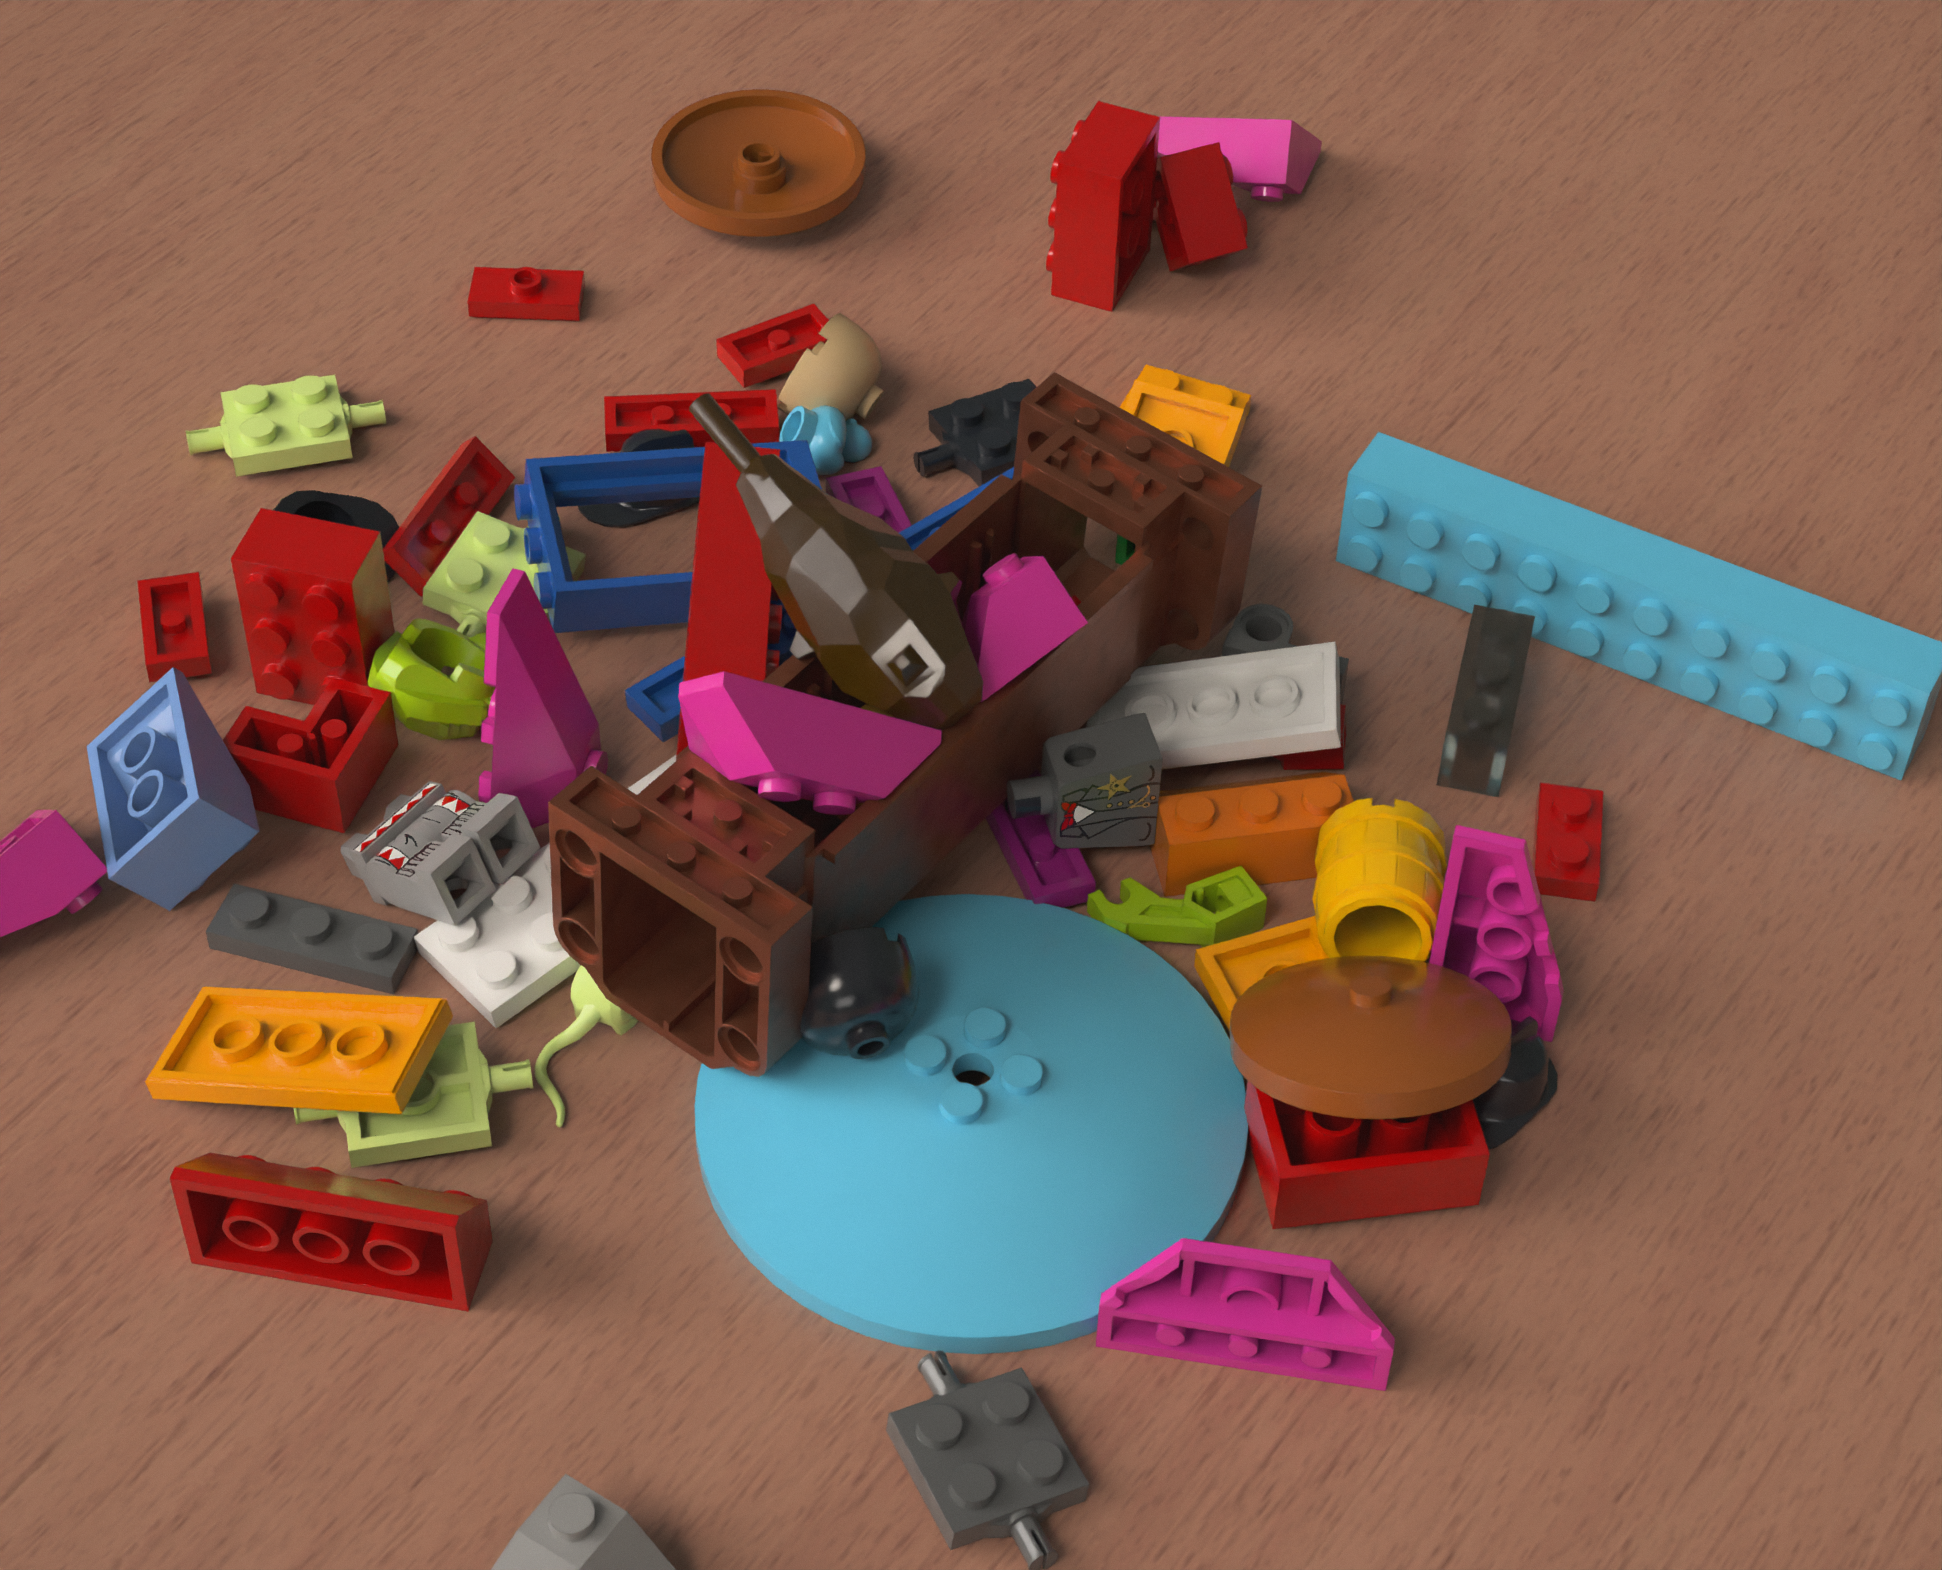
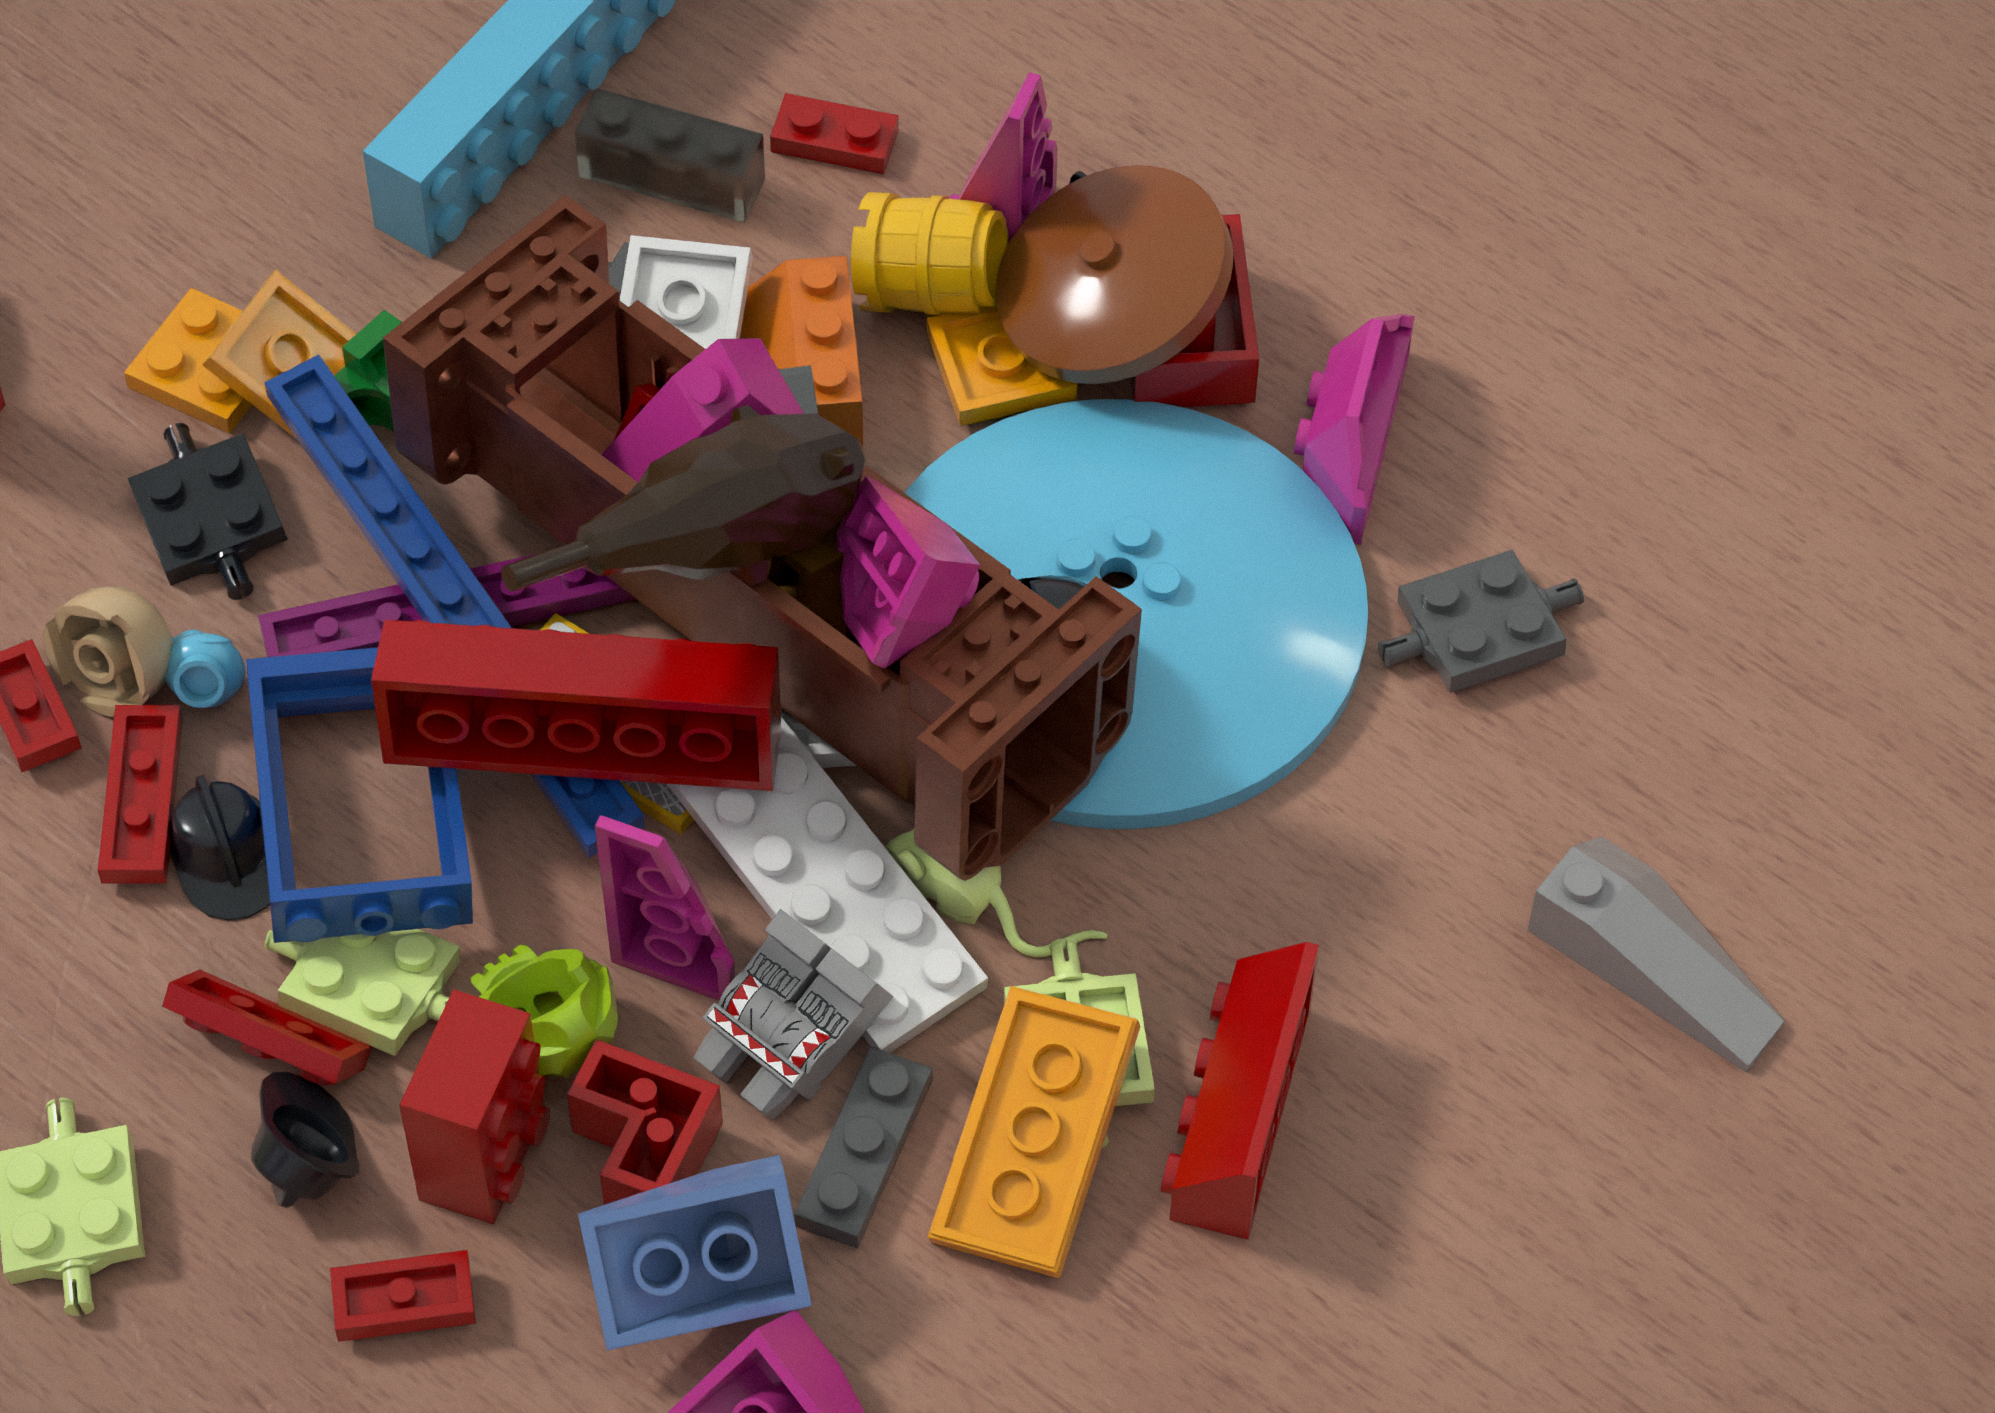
camera: 85 degrees left, 10 degrees up
(1147, 917) = (903, 451): lime piece -> none

